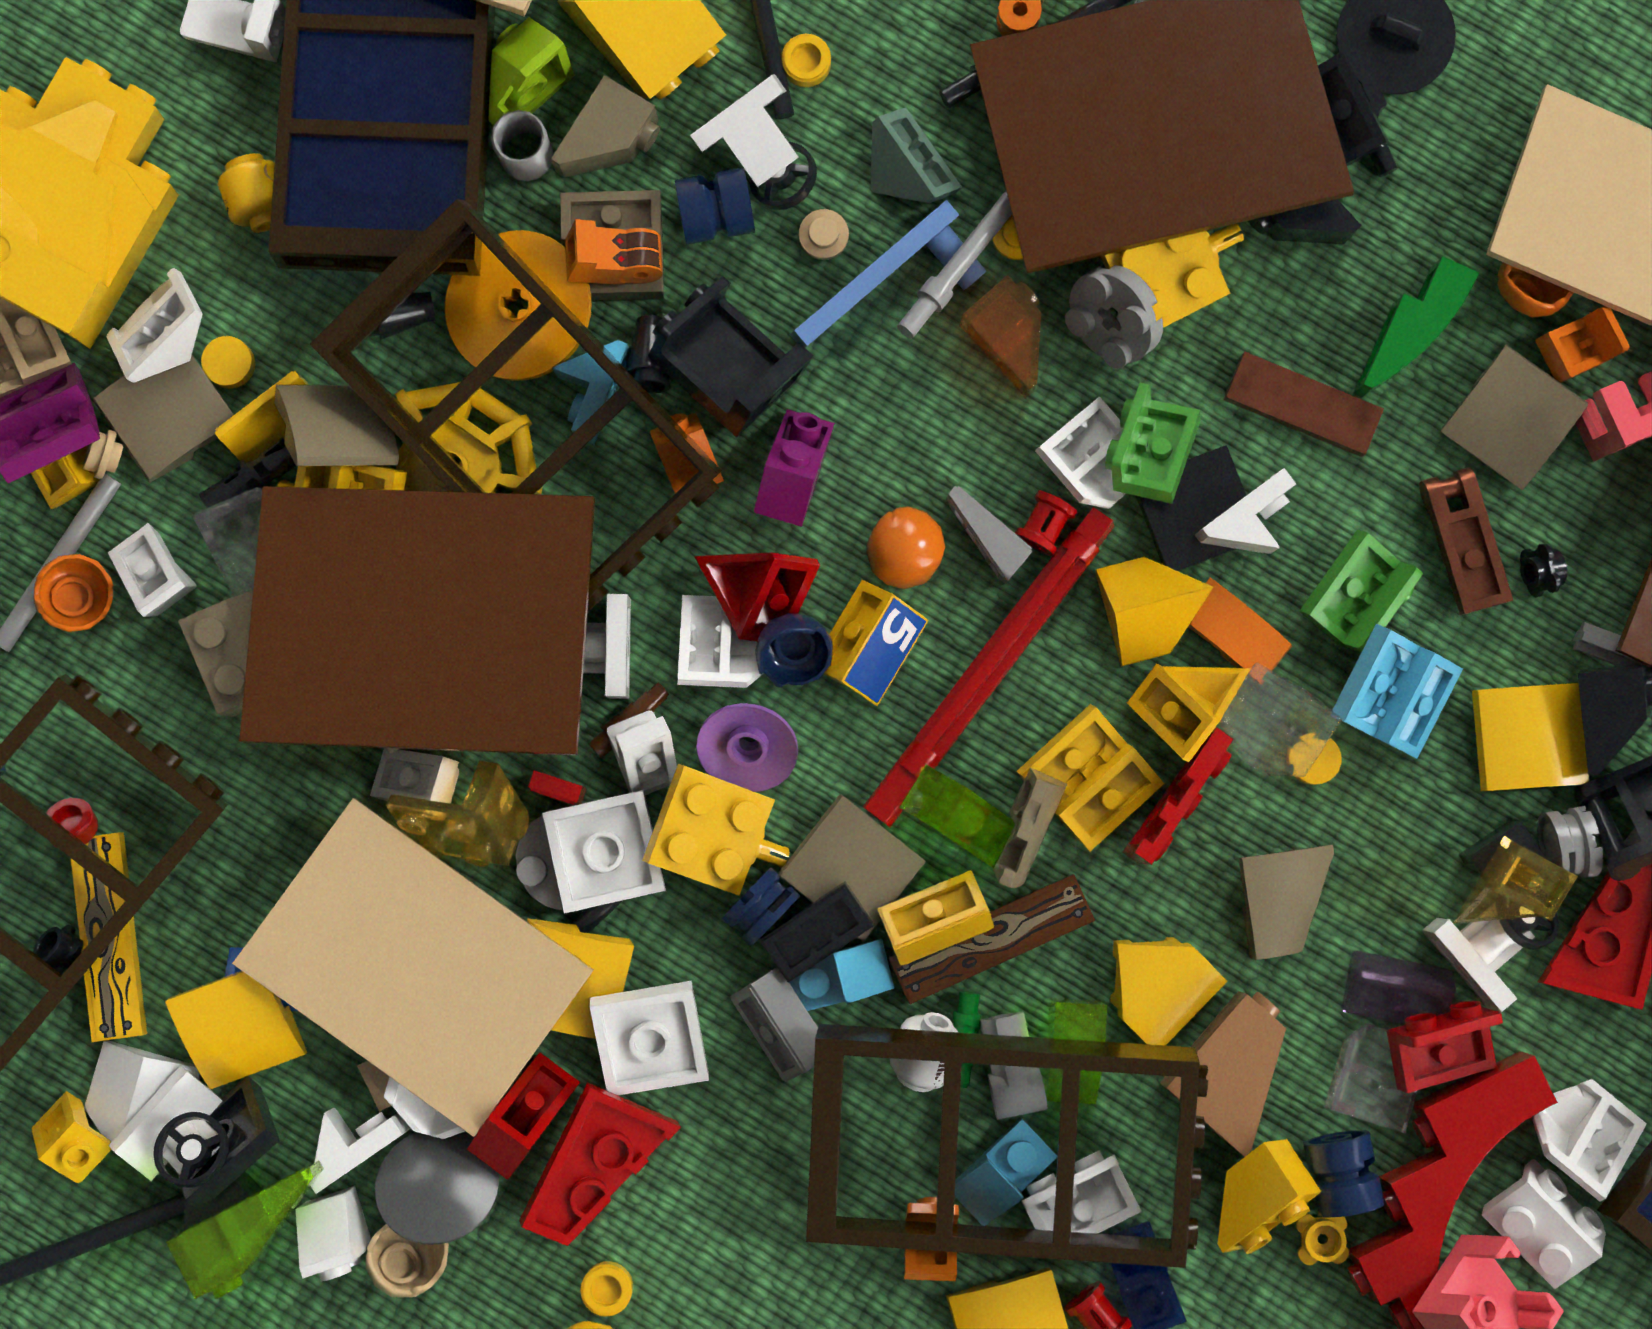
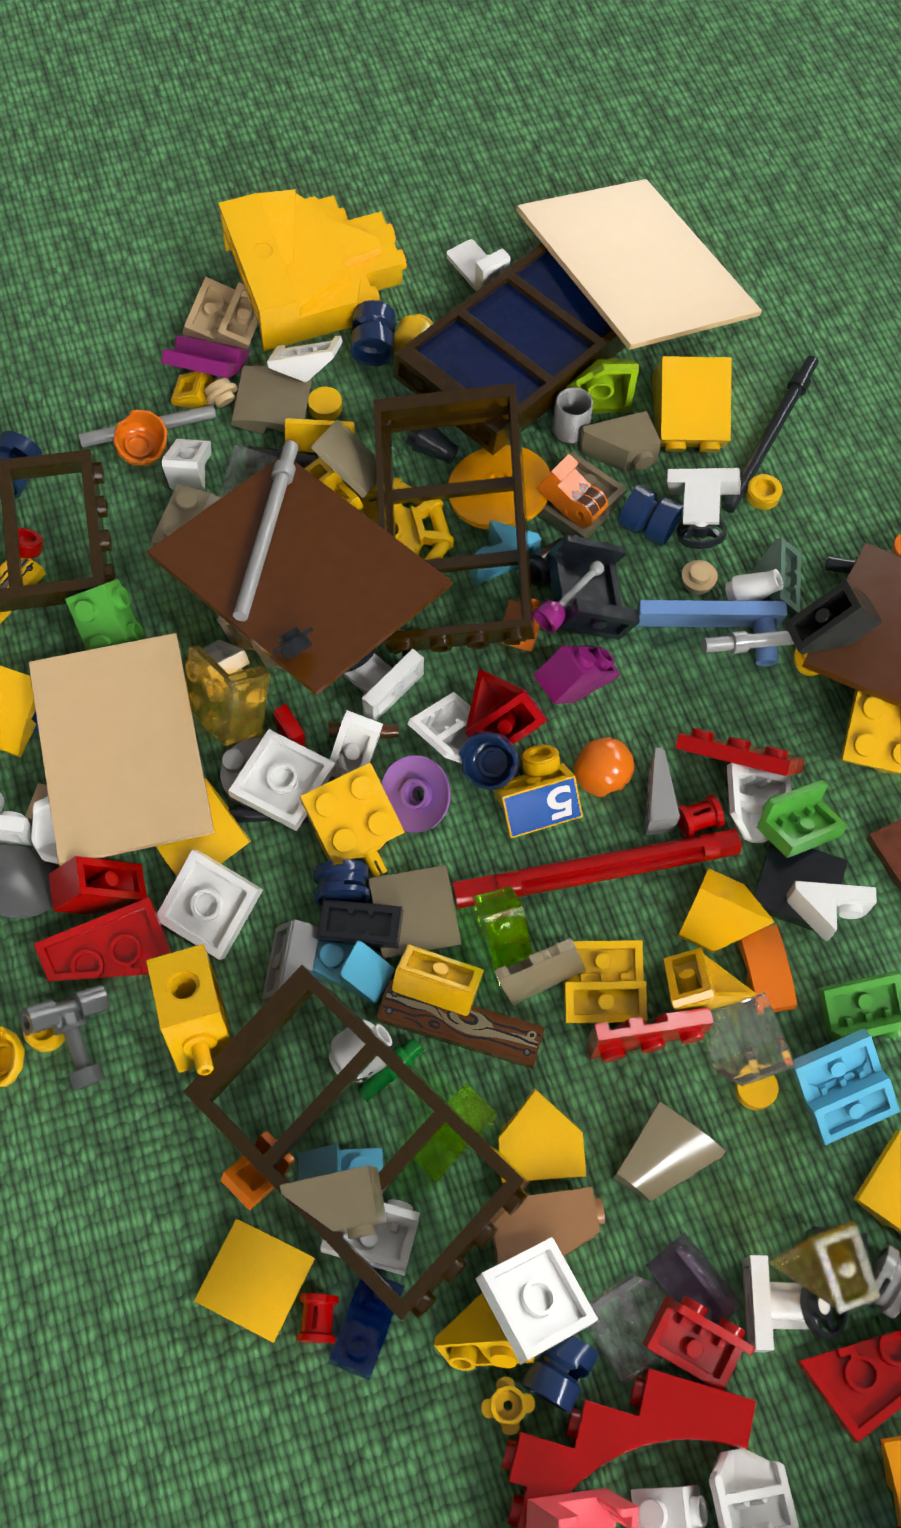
camera: 40 degrees right, 20 degrees down
(208, 235) = (373, 333): none -> dark blue wheel
(258, 840) = (104, 616): none -> bright green bracket
(294, 521) = (282, 476): none -> light grey bar
(508, 725) = (293, 642): none -> black plate
(627, 1265) = (68, 1019): none -> dark grey bar
(720, 431) = (552, 613): none -> magenta hinge
(767, 1169) = (189, 1008): none -> yellow piece
(839, 599) = (540, 760): none -> yellow tile
(893, 208) = (754, 586): none -> white cone
(1008, 331) = (764, 697): clear orange slope -> none
(1013, 1088) = (402, 1113): light grey piece -> none
(1023, 197) = (833, 620): none -> pearl dark grey slope
(1042, 418) = (740, 752): none -> red wing
(1048, 1221) = (342, 1200): none -> dark tan slope
(1090, 316) = (821, 726): light grey plate -> none
(1286, 1144) = (536, 1300): none -> white tile

